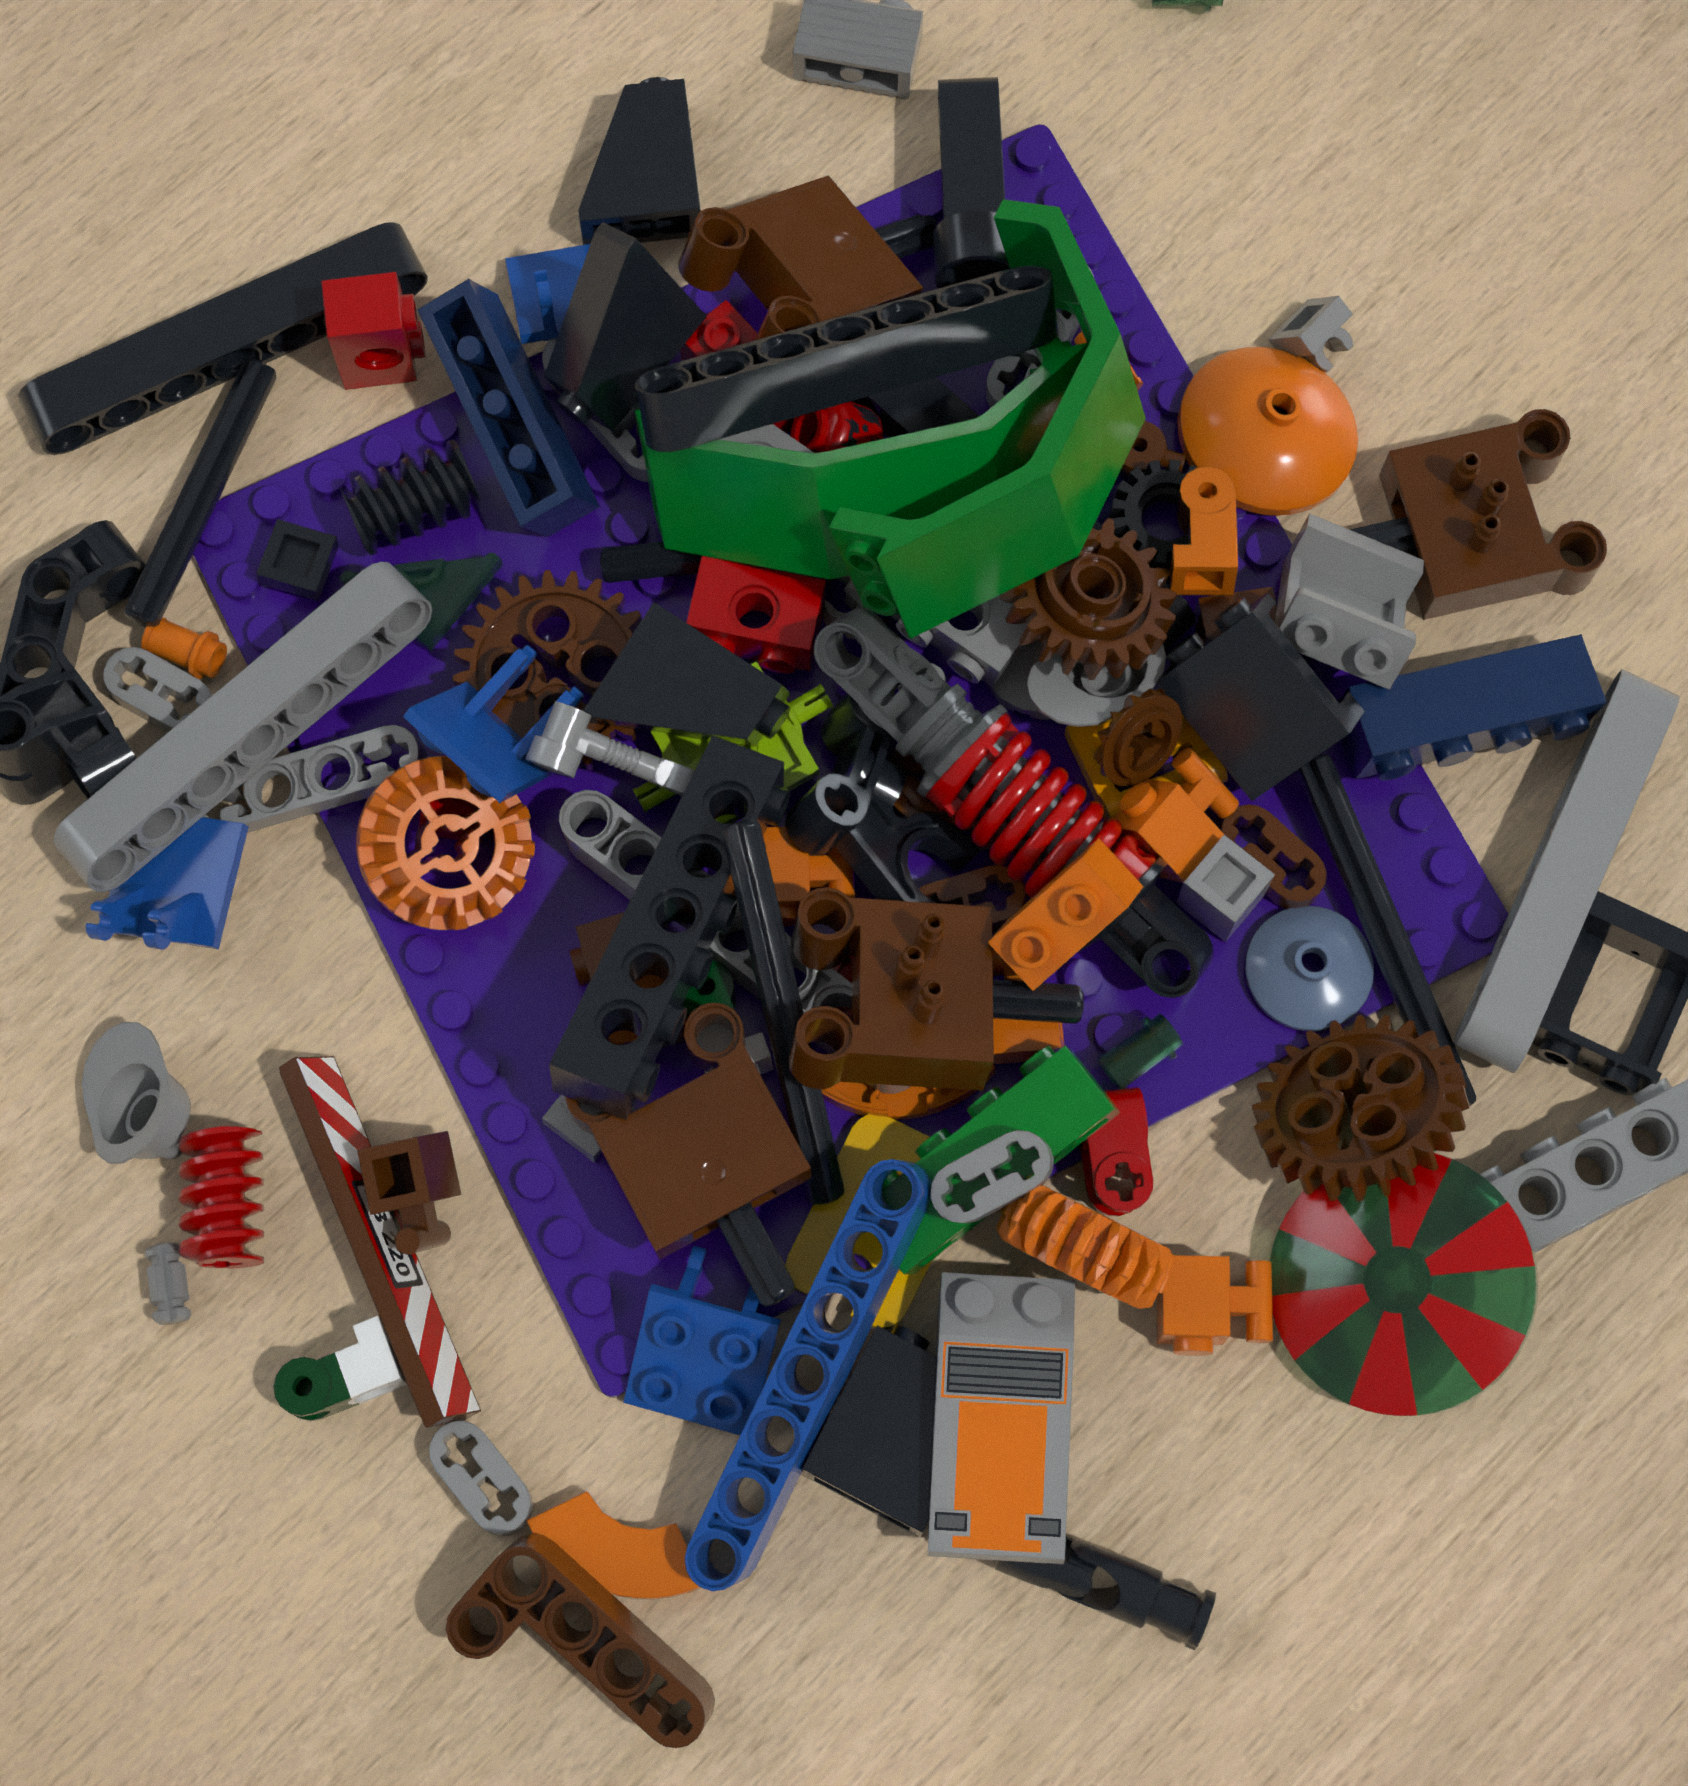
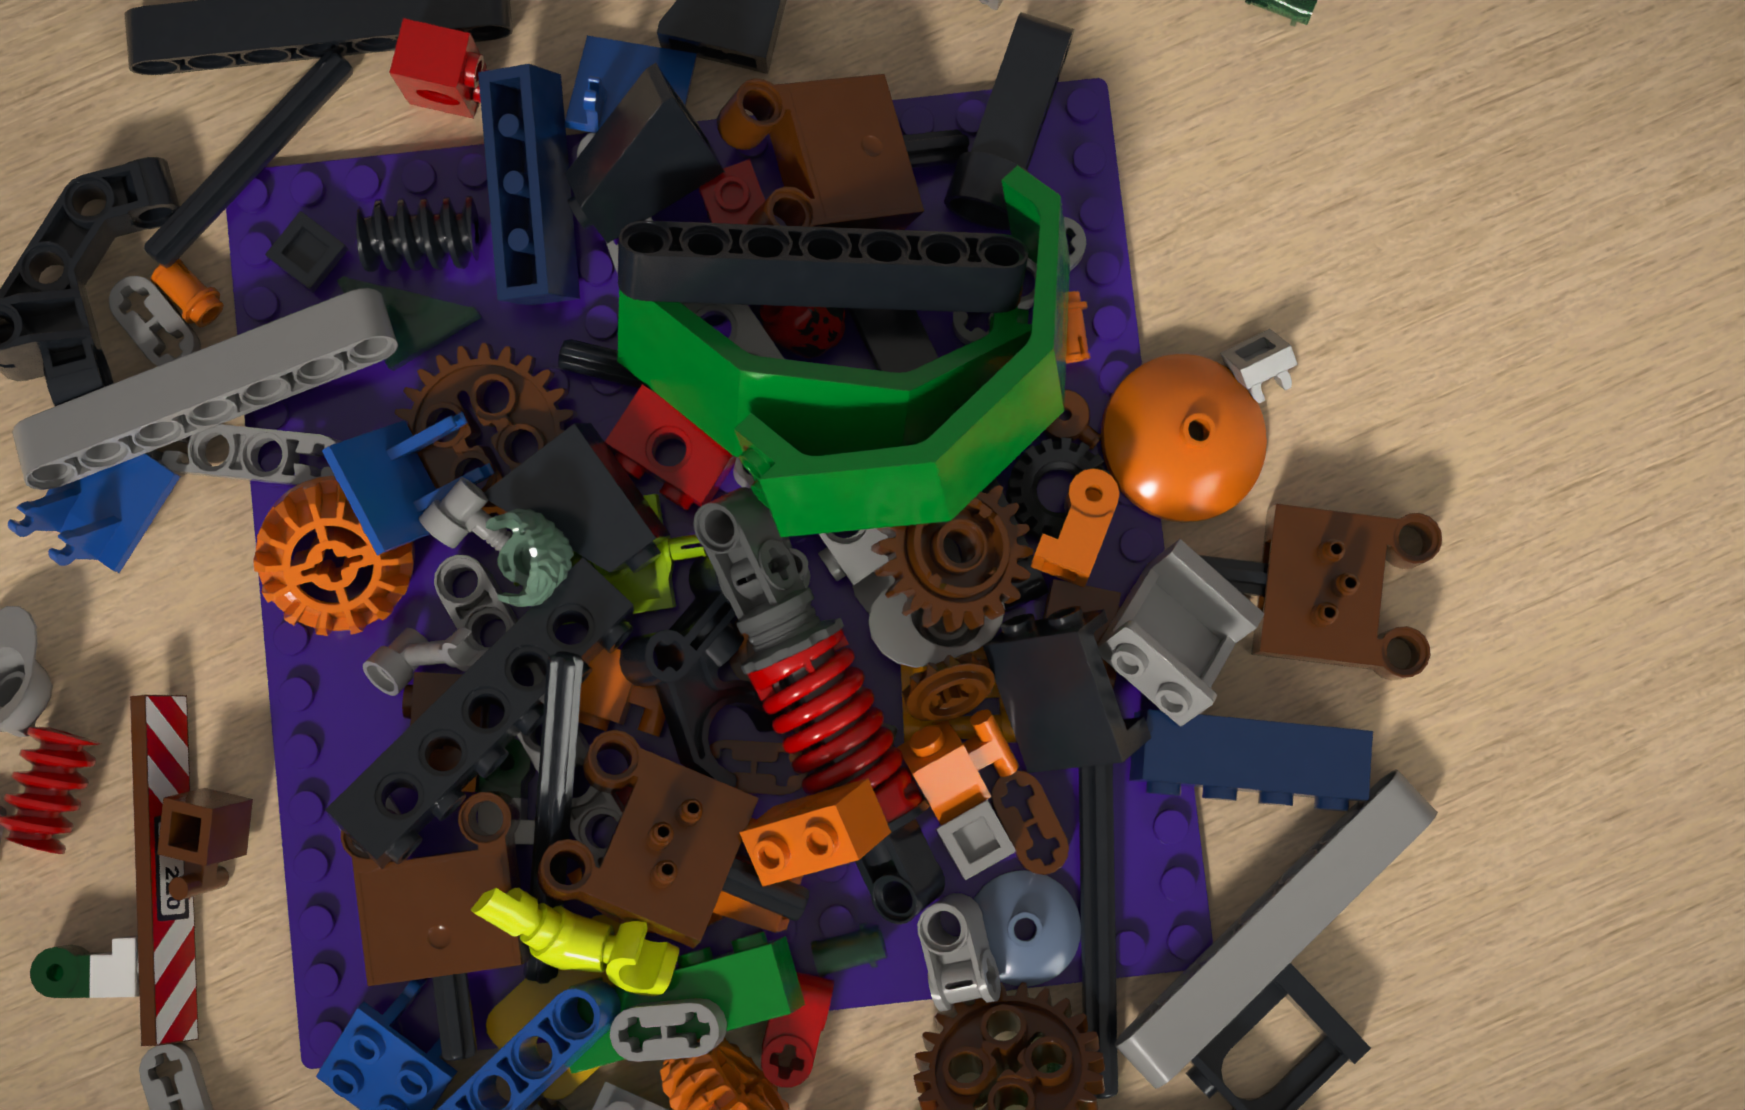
camera: 20 degrees right, 10 degrees up
(548, 934) = (393, 666): none -> light grey brick
(664, 745) = (533, 556): none -> sand green hair
(865, 1123) = (582, 943): none -> neon yellow piece
(1257, 1013) = (960, 965): none -> light grey piece

